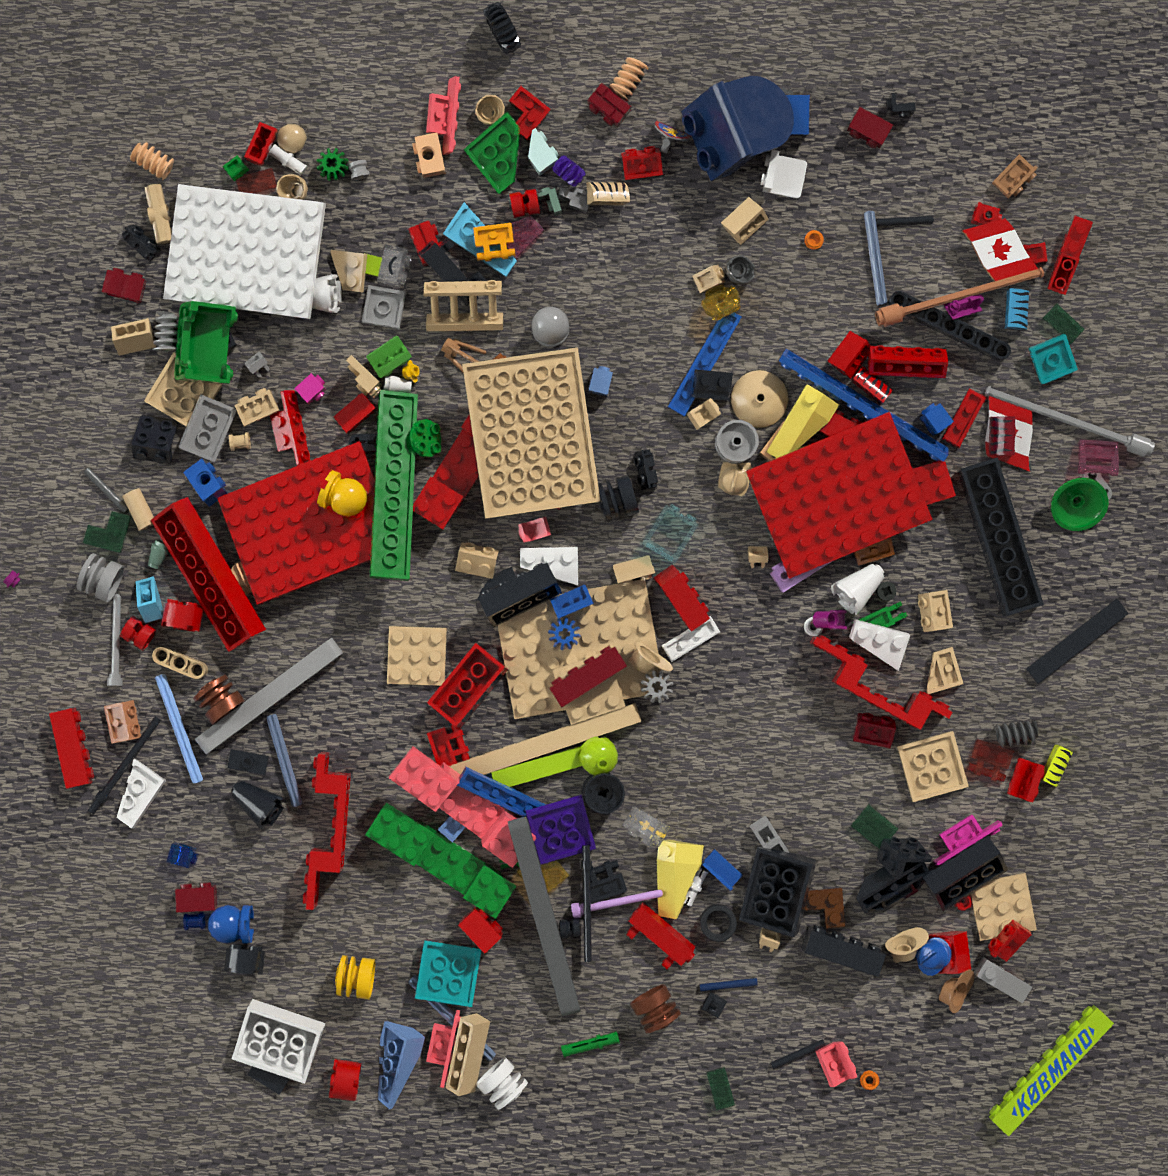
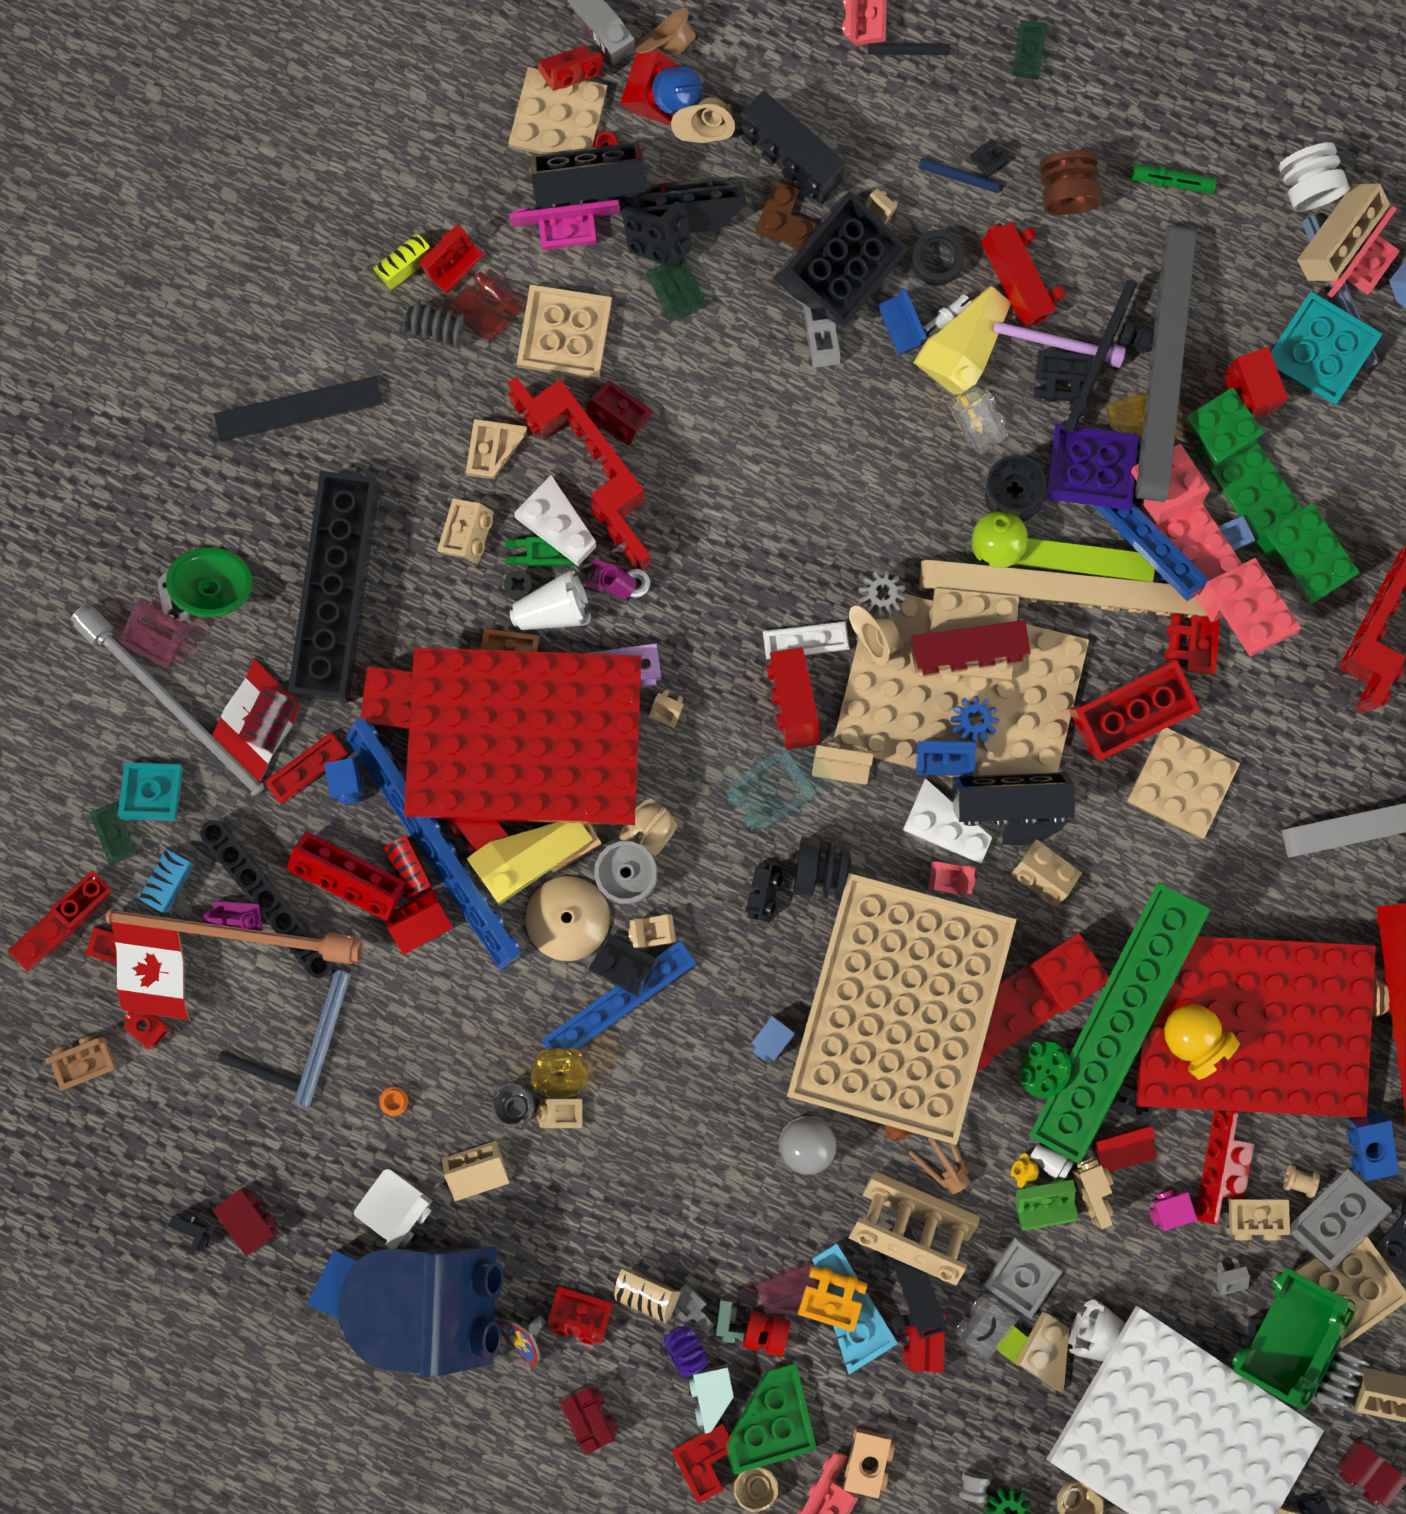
camera: 155 degrees left, 5 degrees down
(627, 77) = (544, 1445): light nougat piece -> none

